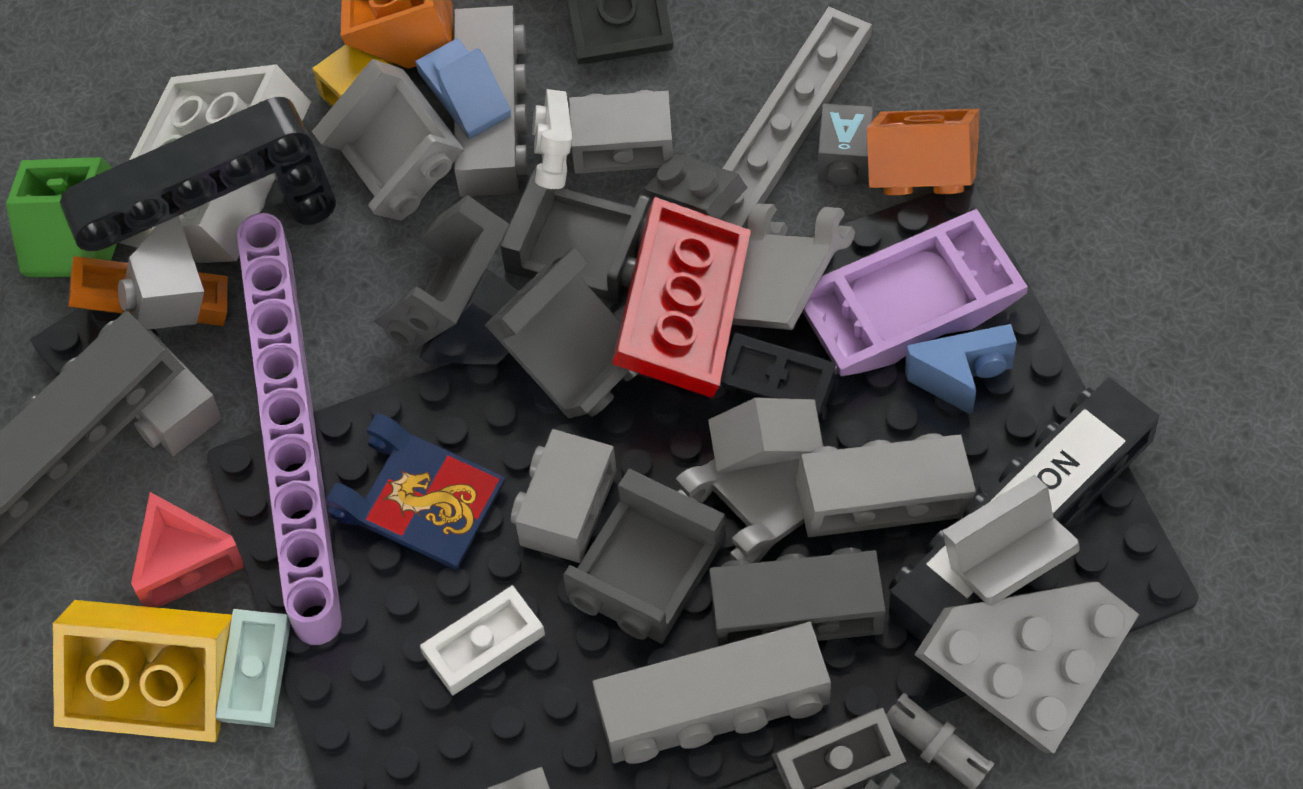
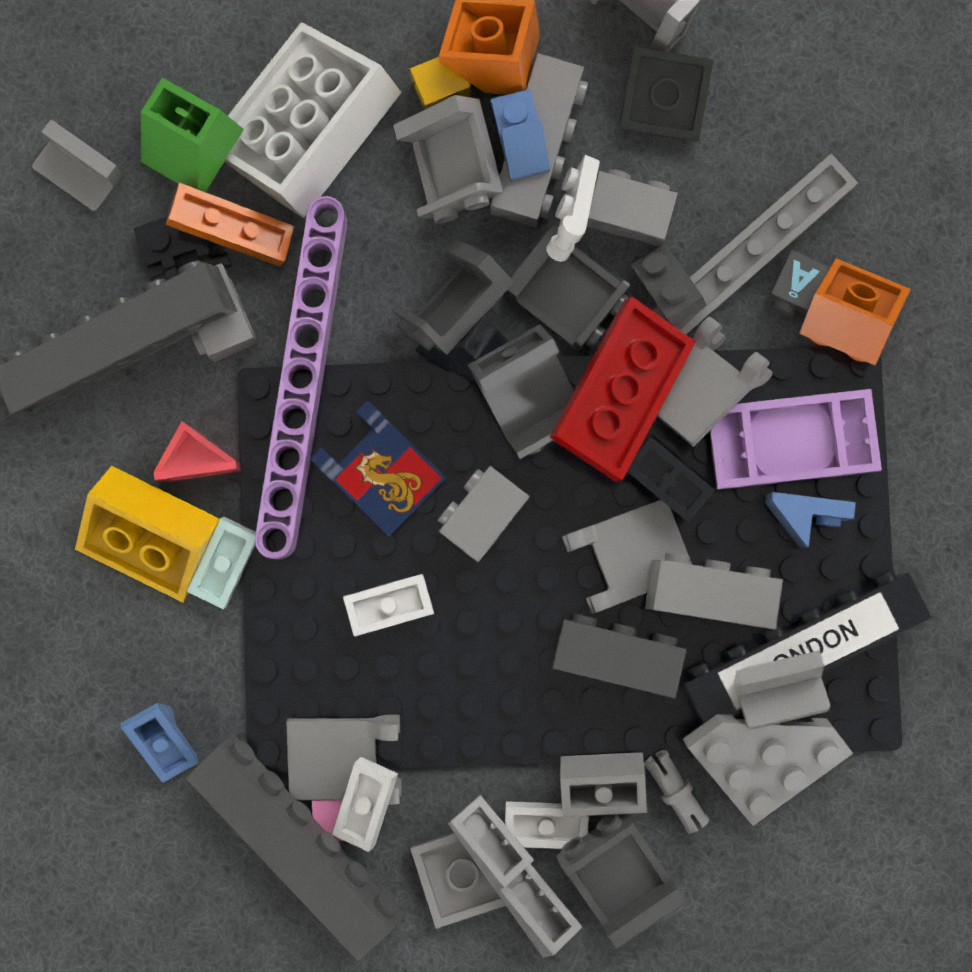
camera: 15 degrees right, 25 degrees up
(162, 280) = (240, 230): light grey slope -> none
(199, 170) = (290, 156): black beam -> none
(646, 558) = (522, 584): dark grey panel -> none
(712, 693) = (534, 706): light grey brick -> none
(764, 433) = (642, 527): light grey slope -> none

